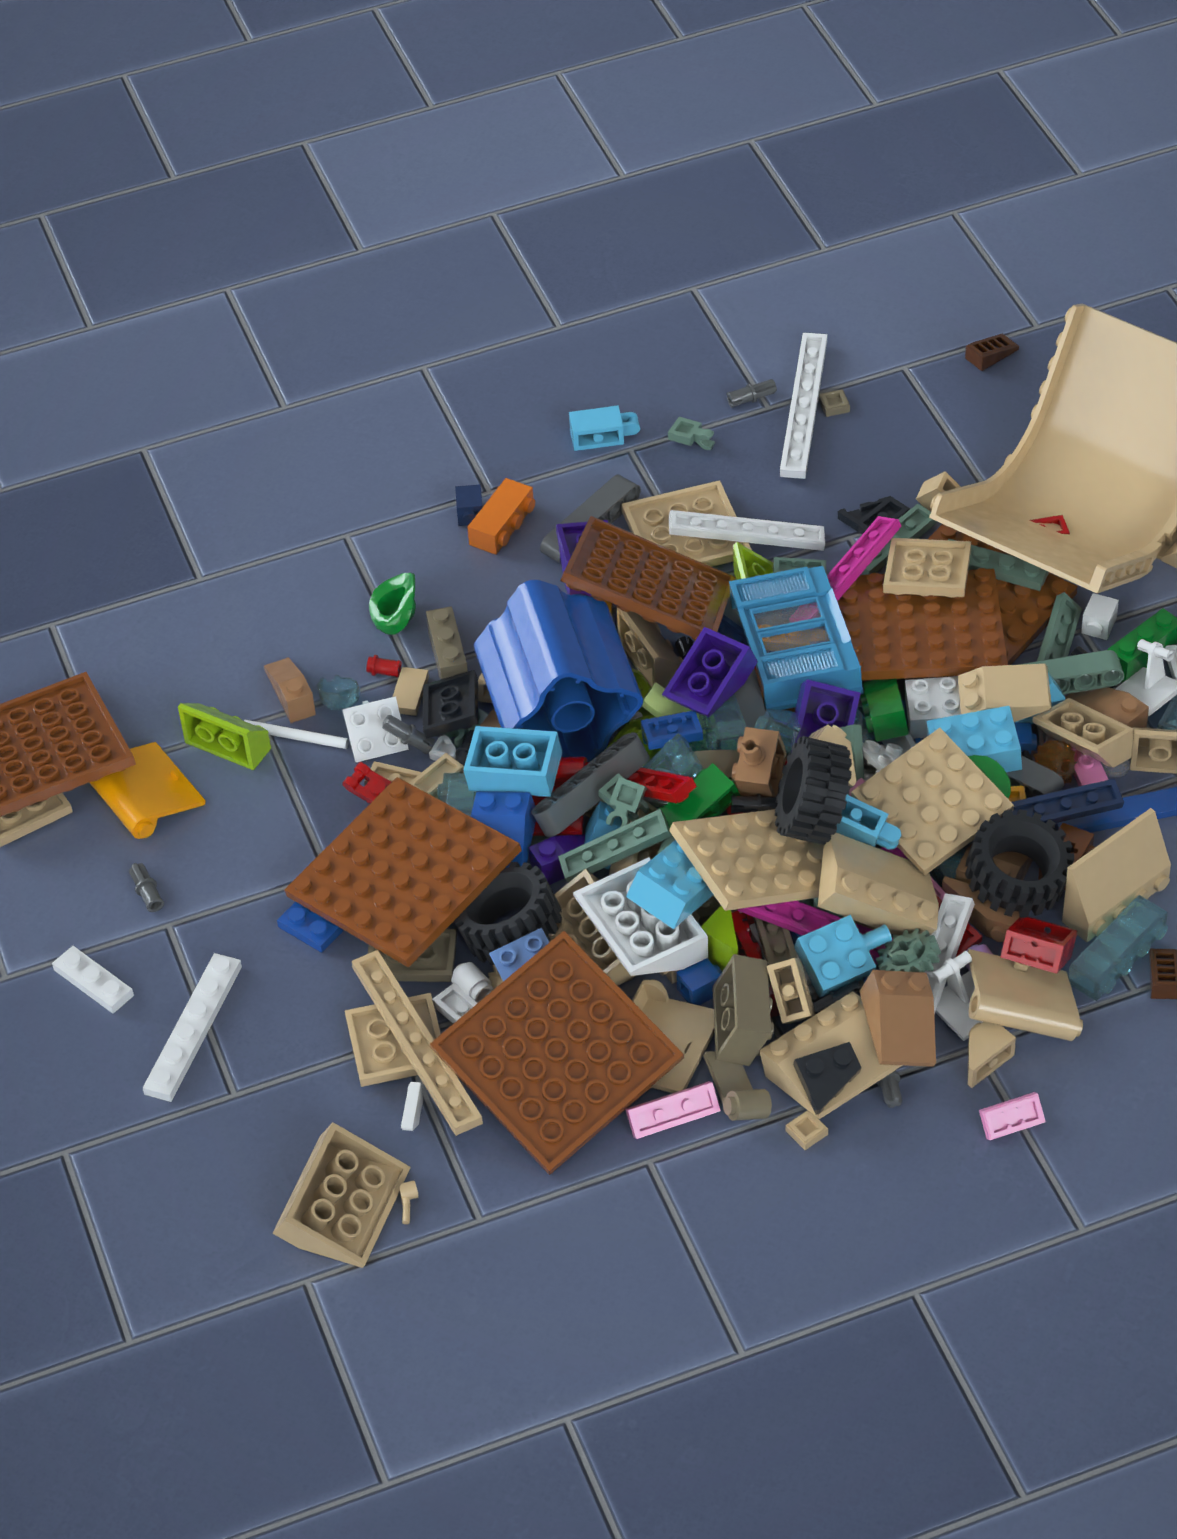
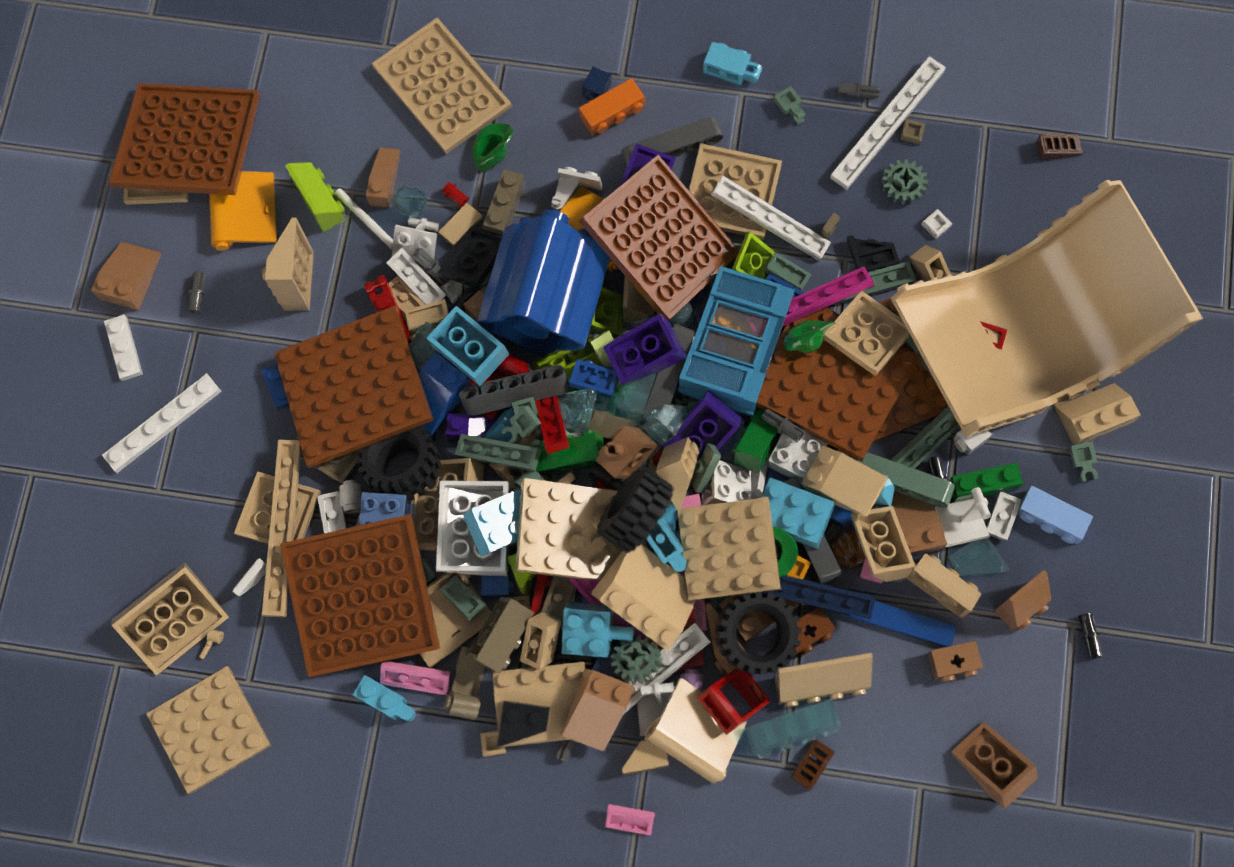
camera: 30 degrees right, 25 degrees up
(50, 912) = (126, 275): none -> medium nougat slope
(260, 797) = (290, 269): none -> tan slope
(295, 580) = (441, 85): none -> tan plate
(394, 751) = (415, 277): none -> white plate
(467, 1285) = (208, 729): none -> tan plate
(506, 582) = (569, 180): none -> white plate
(654, 1145) = (383, 699): none -> medium azure brick
(673, 1008) = (463, 598): none -> sand green plate
(813, 513) = (830, 226): none -> dark tan tile
(860, 443) = (895, 184): none -> sand green gear
(871, 594) = (806, 335): none -> green hat
(902, 678) = (783, 425): none -> dark grey axle
(920, 465) = (936, 224): none -> white tile

